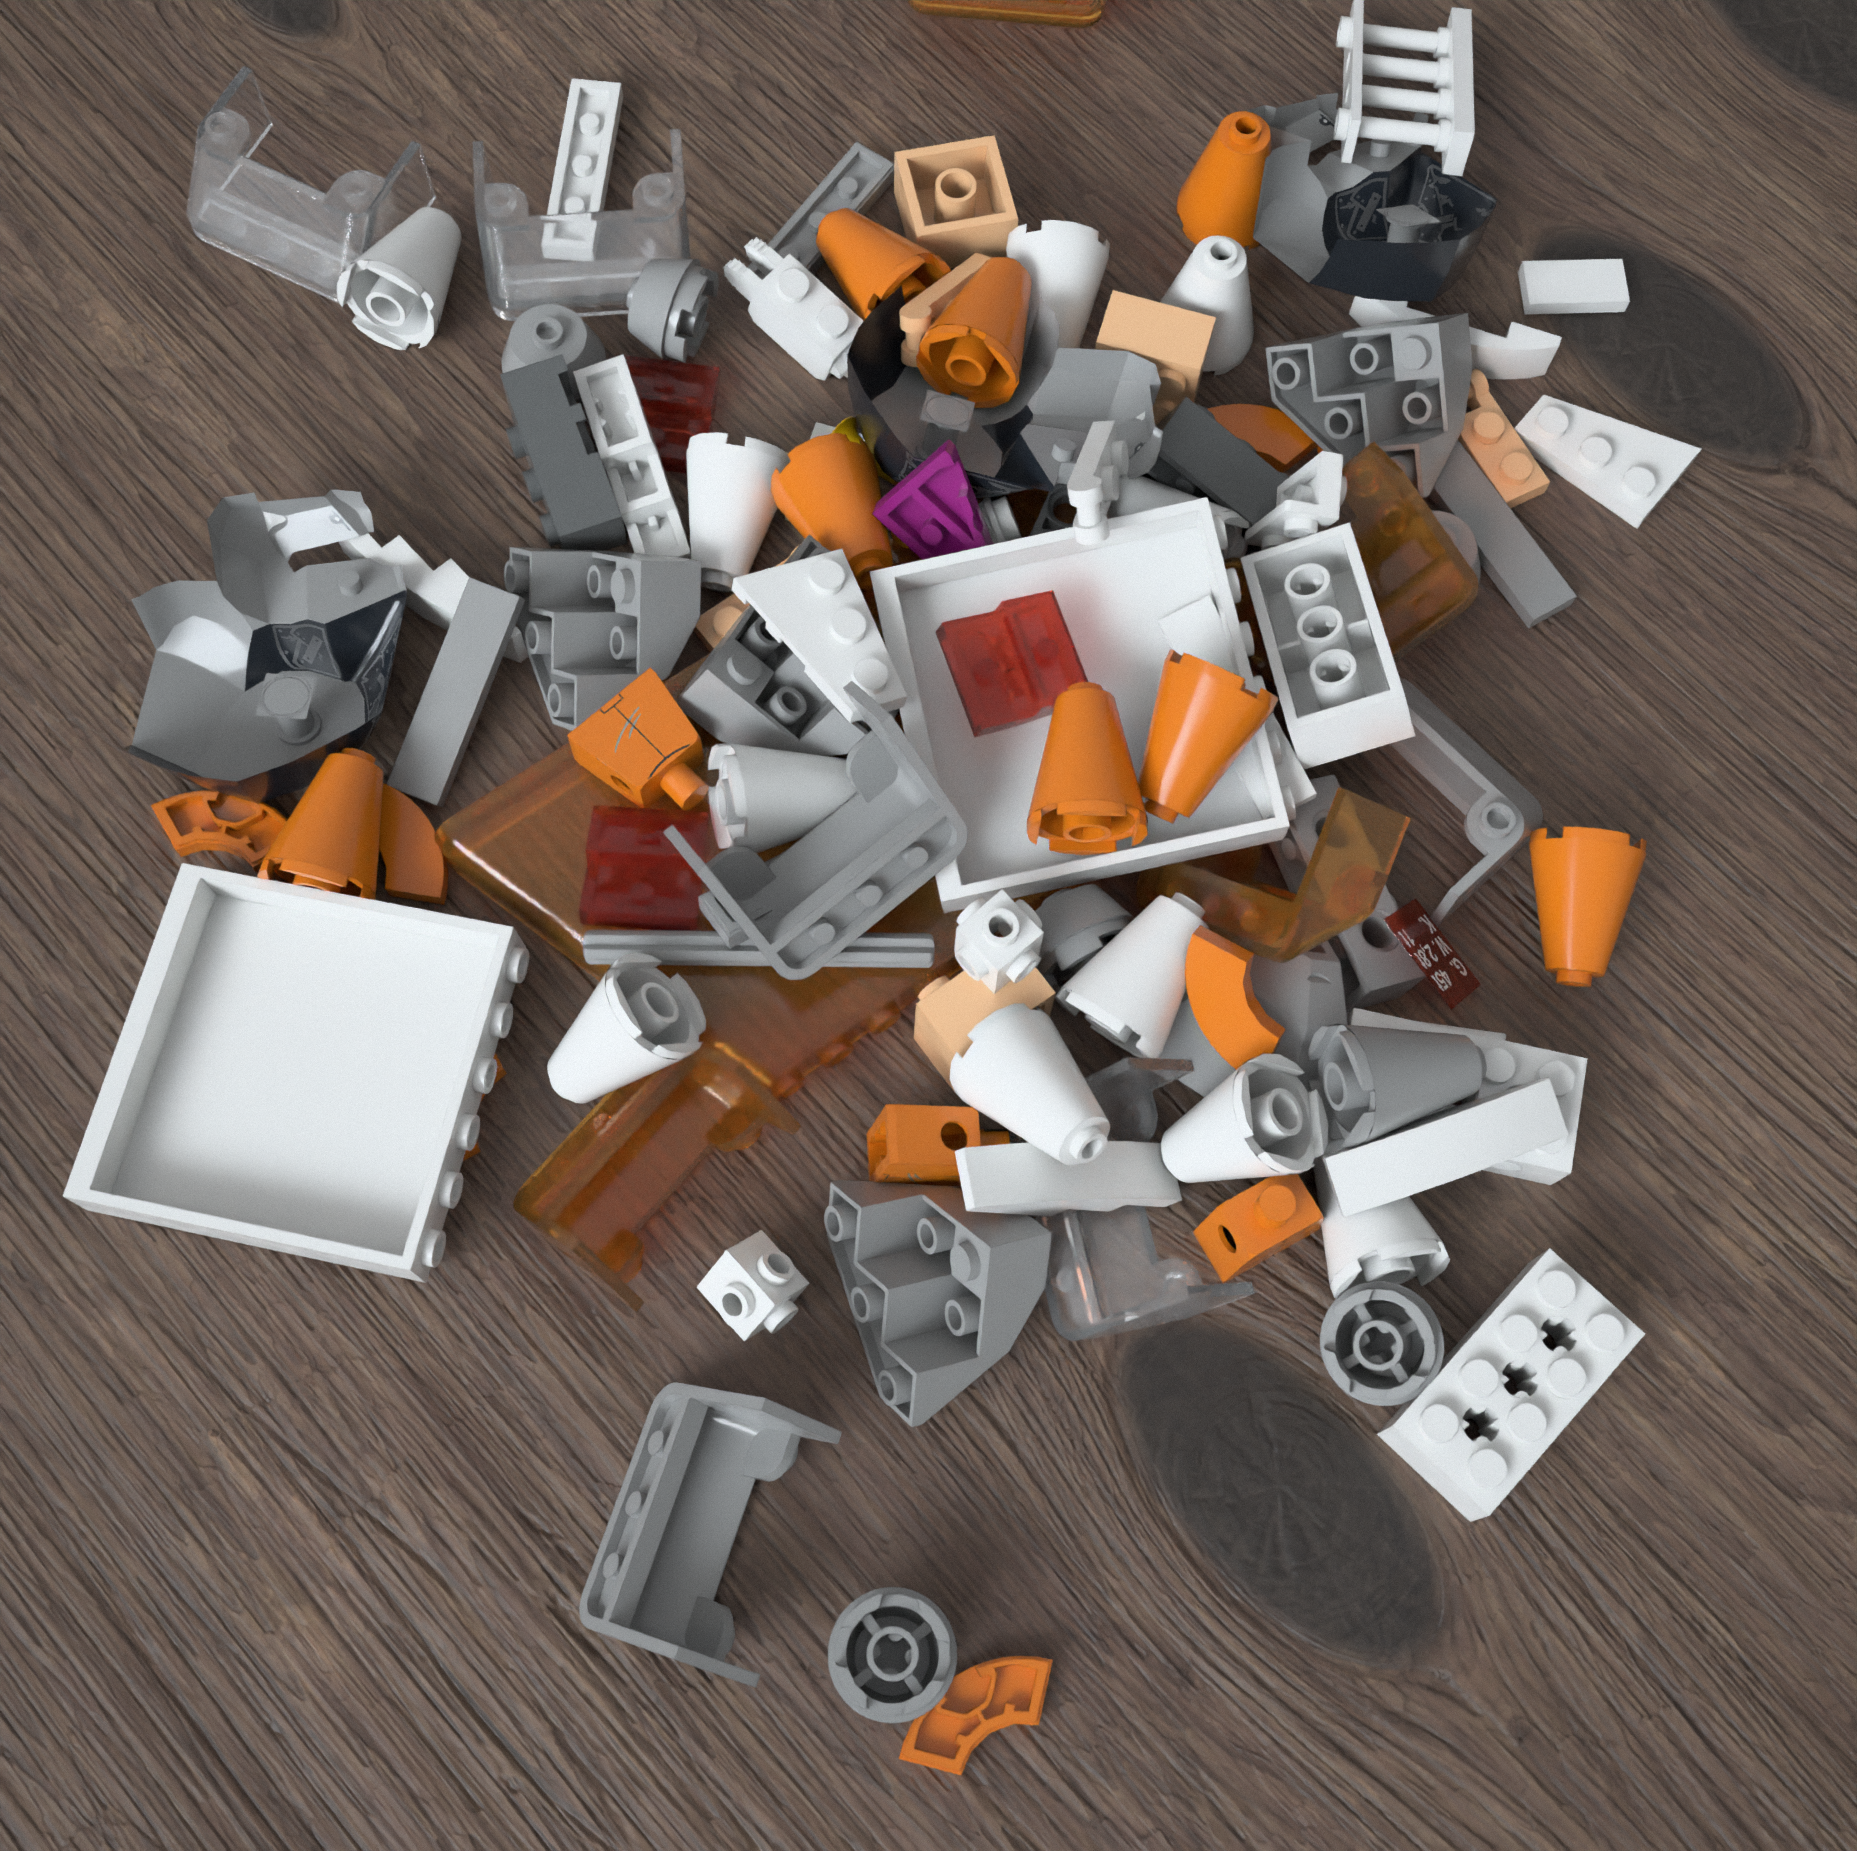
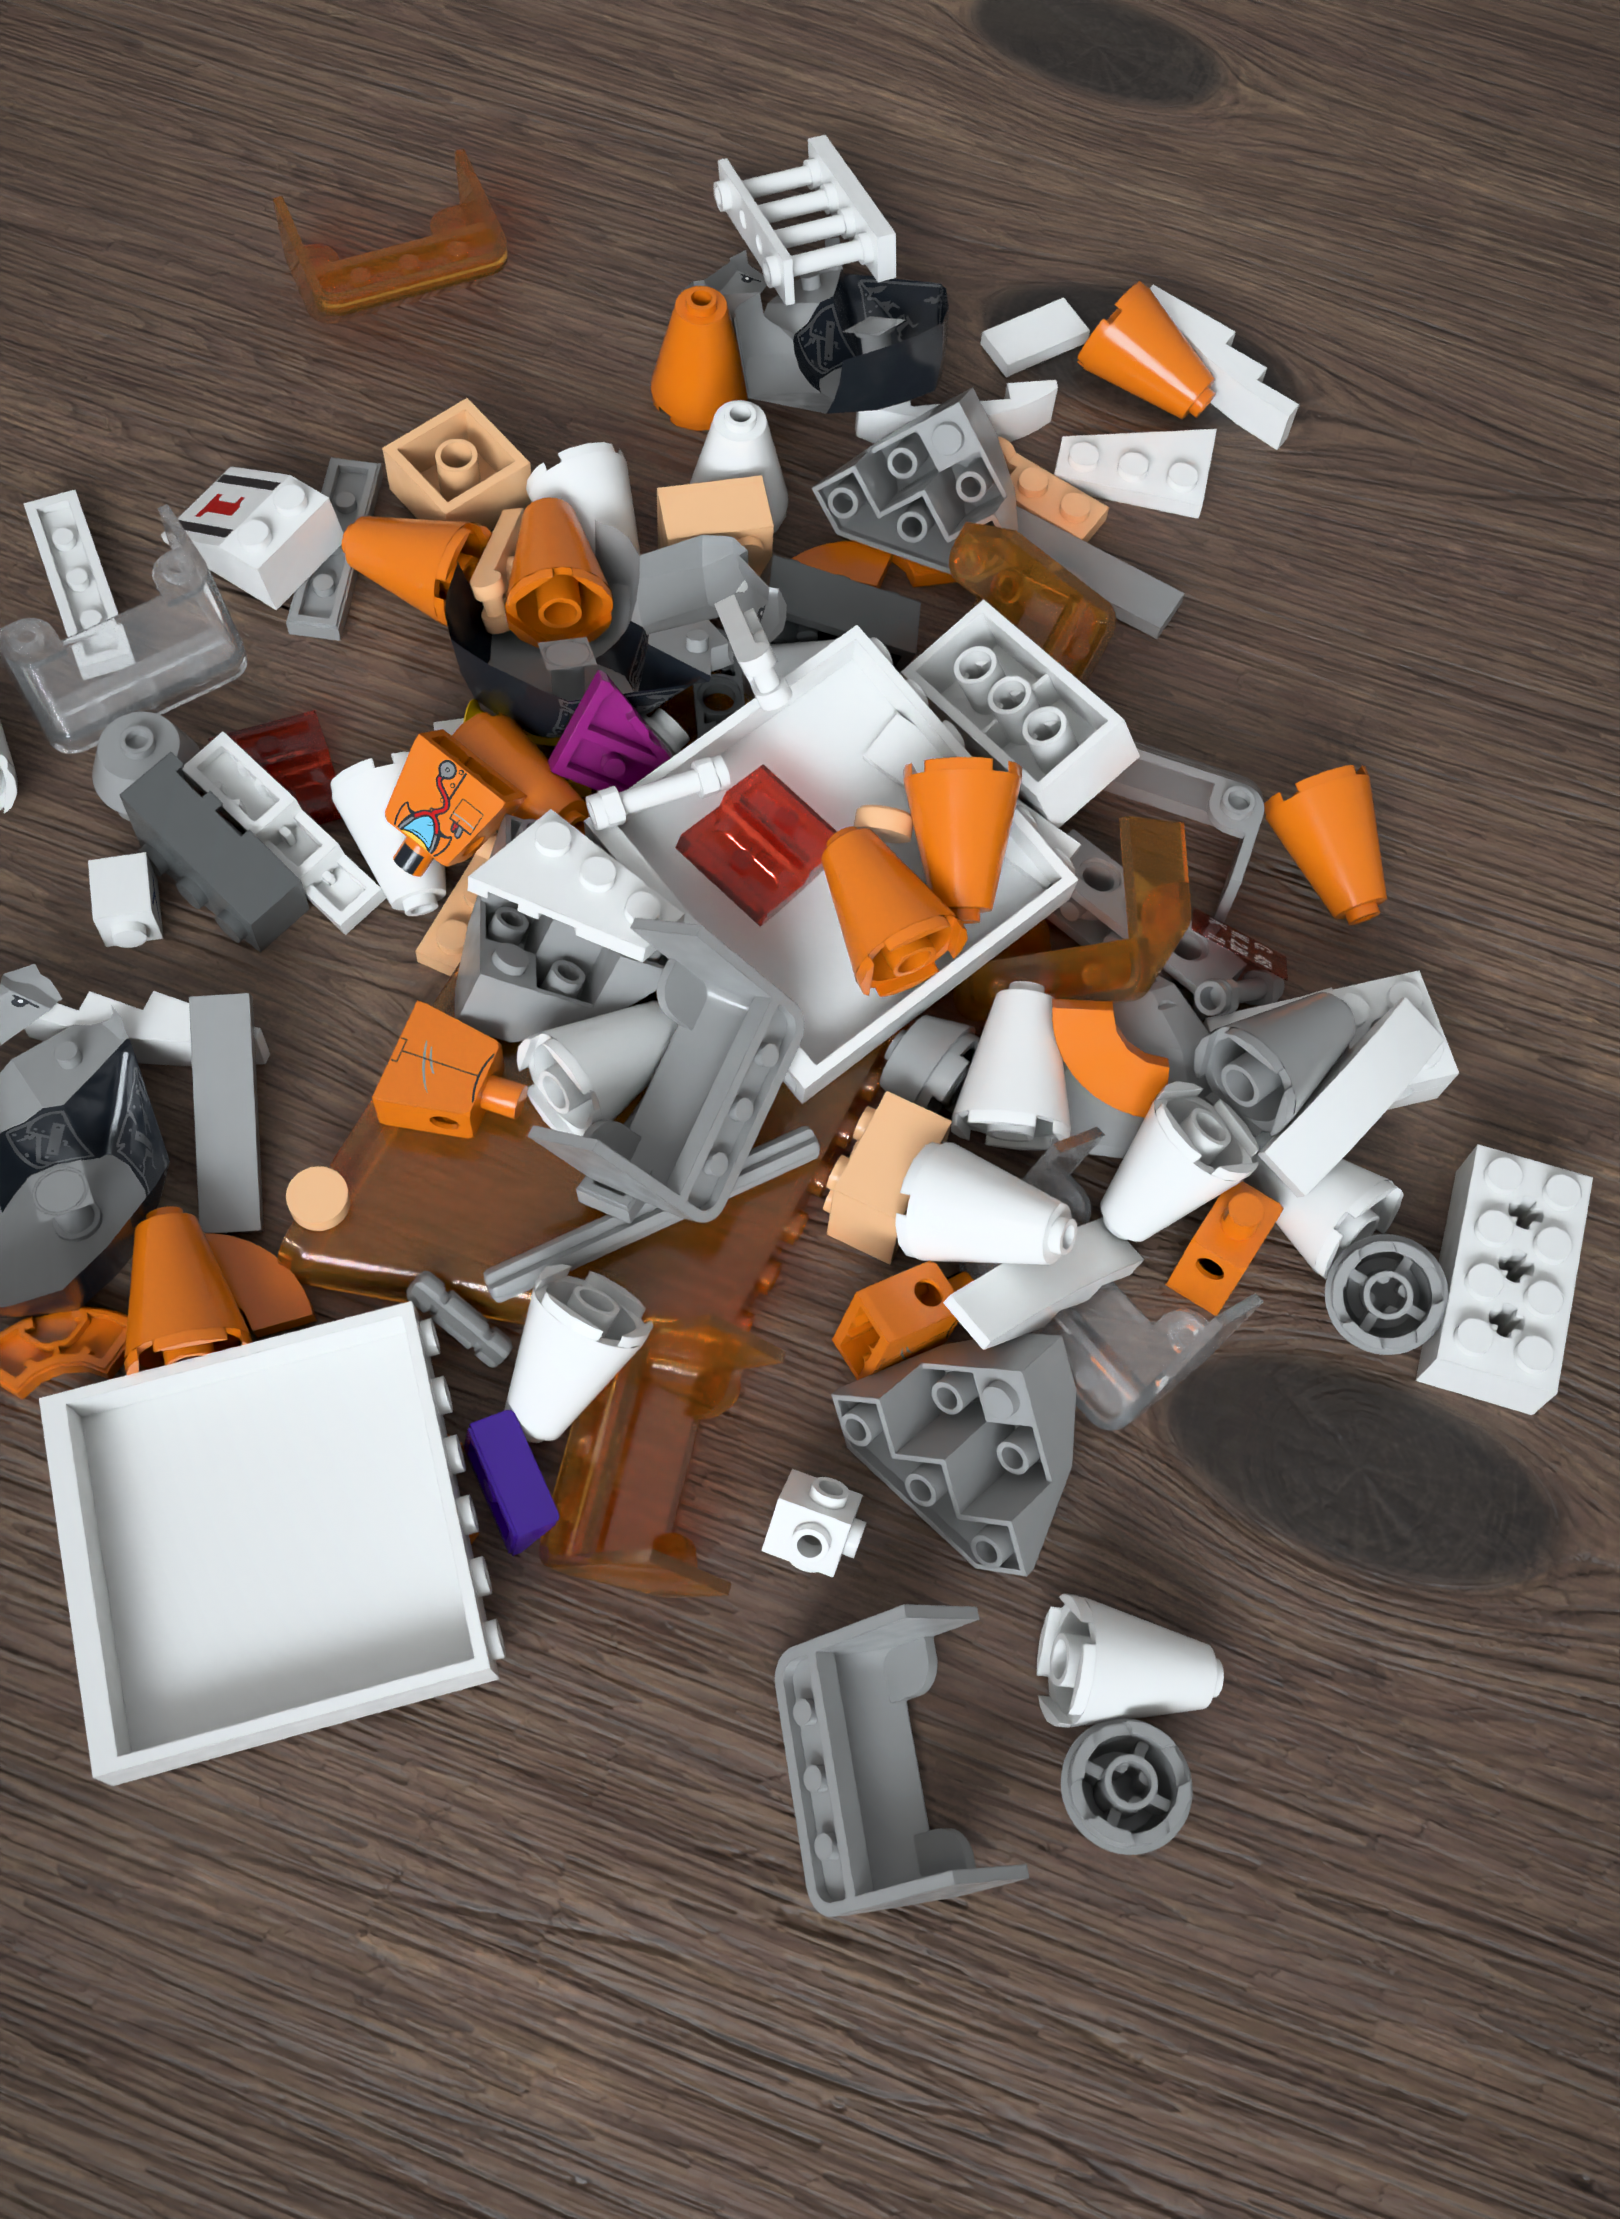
camera: 30 degrees left, 5 degrees down
(474, 468) = (125, 900): none -> white brick
(486, 801) = (318, 1198): none -> light nougat tile
(523, 1119) = (510, 1480): none -> dark purple slope
(552, 960) = (459, 1319): none -> light grey axle
(600, 621) = (333, 989): light grey brick -> none
(637, 872) = (504, 1191): clear red slope -> none
(671, 306) = (241, 670): light grey cone -> none
(755, 185) = (262, 531): none -> white slope
(766, 501) = (446, 803): none -> orange torso
(796, 310) = (369, 629): white hinge -> none
(894, 570) = (705, 777): none -> white bar
(951, 1550) = (1119, 1666): none -> white cone
(974, 1706) = (1224, 1785): orange tile -> none
(998, 958) = (883, 1094): white brick -> none
(1130, 693) = (886, 822): none -> light nougat tile
(1304, 503) = (928, 603): white bracket -> none
(1379, 994) = (1224, 995): none -> light grey bar
(1669, 349) = (1148, 356): none -> orange cone
(1739, 402) = (1236, 376): none -> white slope

